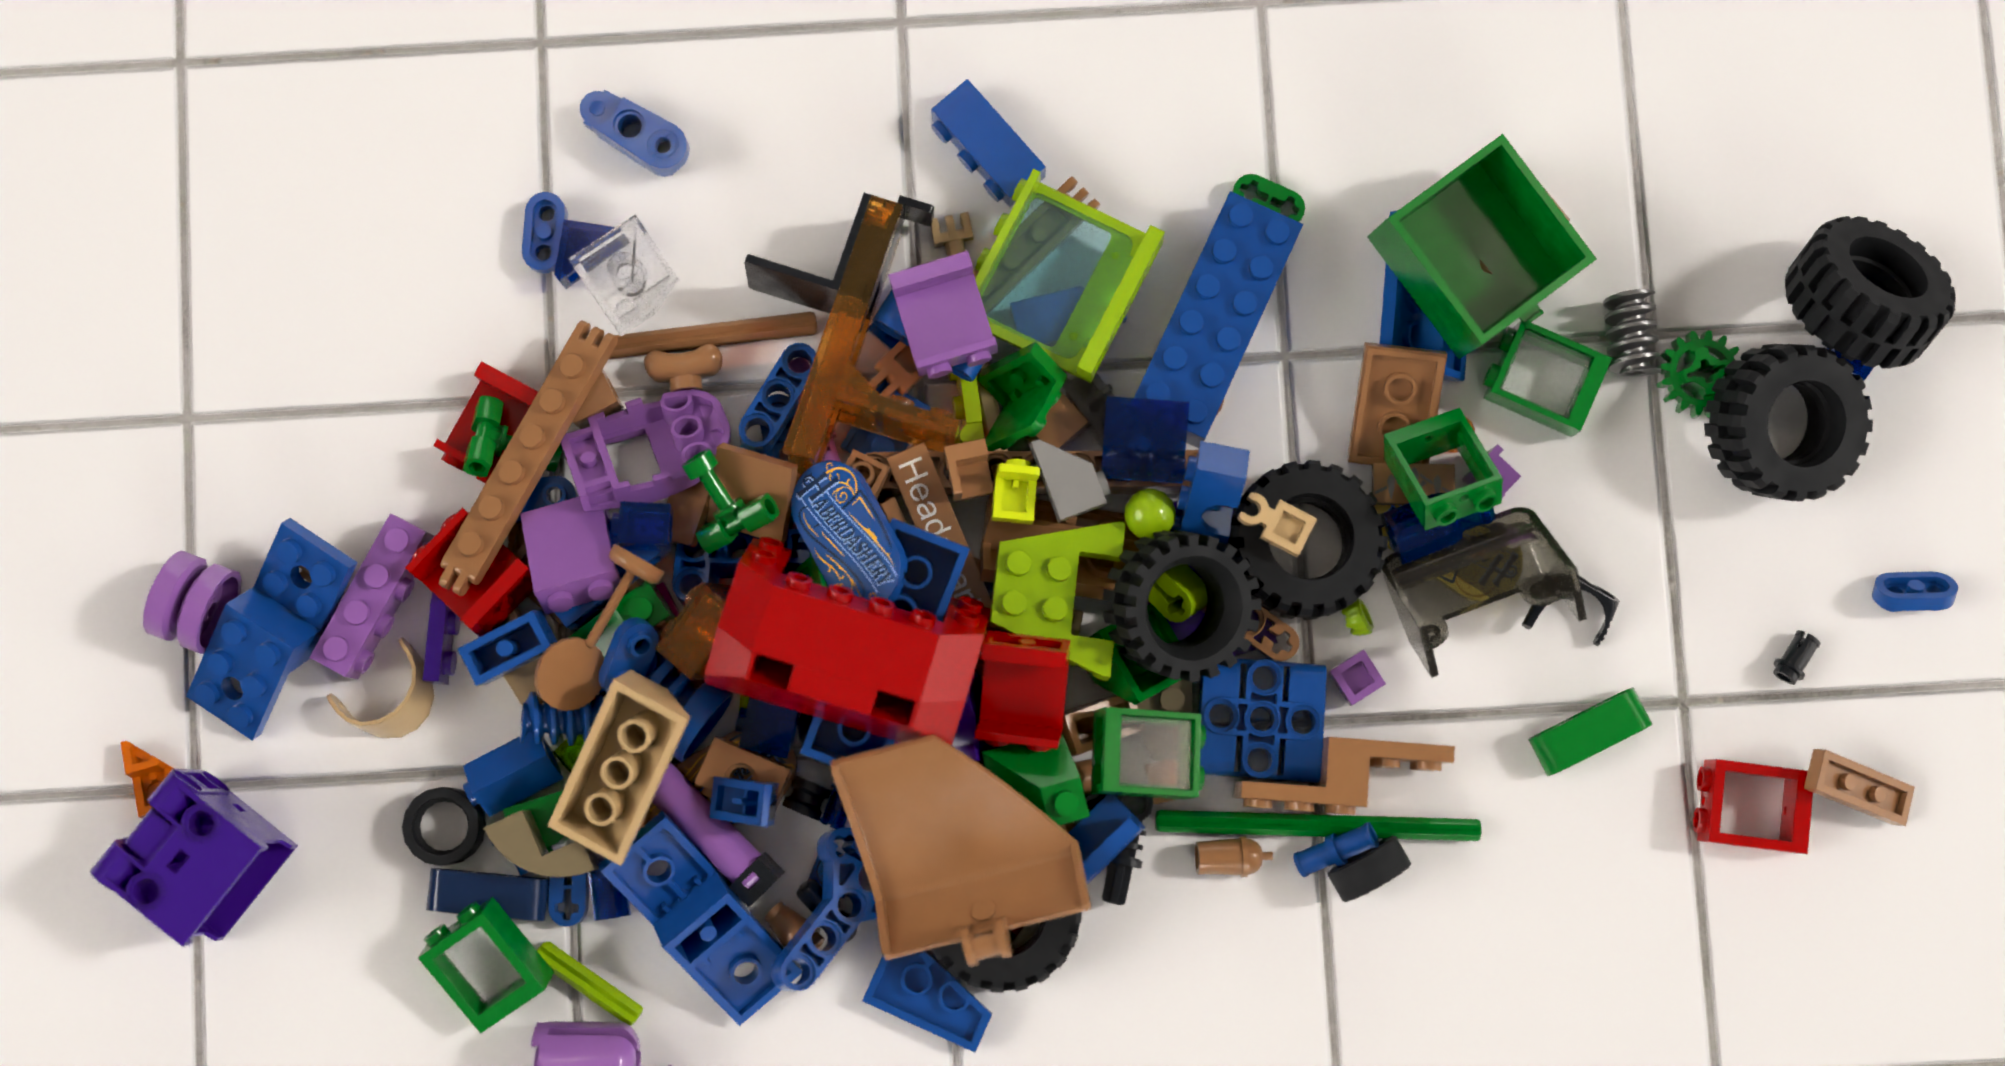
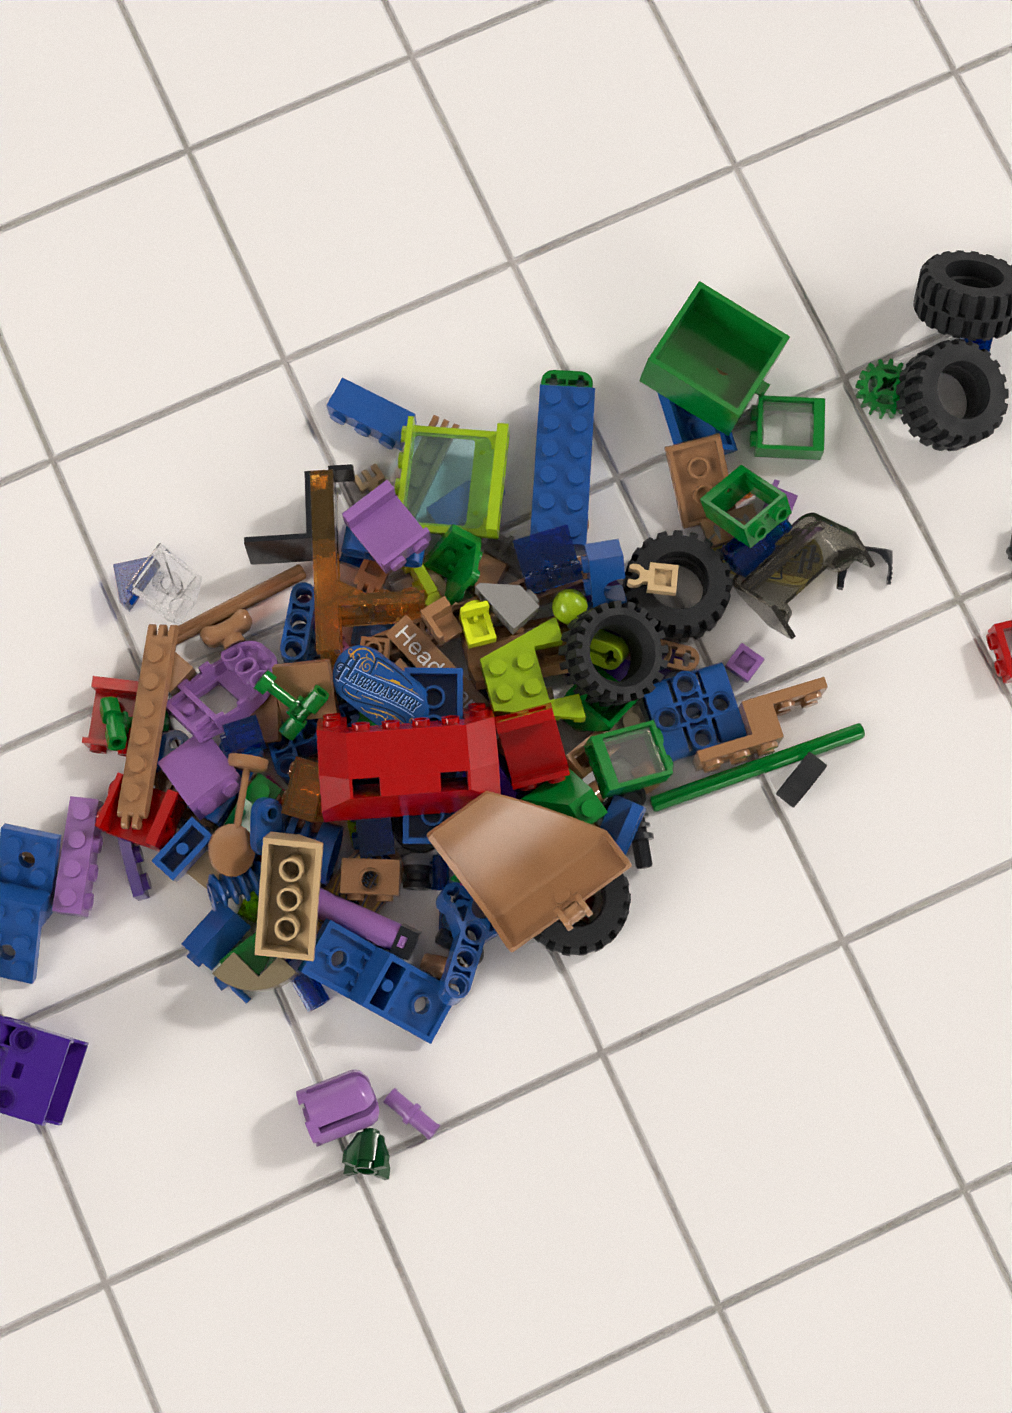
camera: 20 degrees left, 5 degrees down
(408, 714) = (130, 928): tan piece -> none
(412, 830) = (161, 985): black tyre -> none
(485, 964) = (246, 1066): green window -> none
(517, 895) = (229, 1023): dark blue beam -> none
(540, 233) = (101, 581): blue plate -> none
(579, 895) = (291, 1001): blue beam -> none
(590, 984) = (318, 1056): lime axle -> none
(610, 115) = (116, 489): blue piece -> none
(744, 801) = (377, 889): blue slope -> none
(929, 998) = (544, 975): blue wing -> none
(1229, 857) = (708, 809): medium nougat piece -> none
(1336, 849) = (775, 776): blue pin -> none
(1358, 618) = (730, 625): lime piece -> none
(1590, 731) = (907, 639): green beam -> none
(1630, 333) = (829, 379): flat silver piece -> none

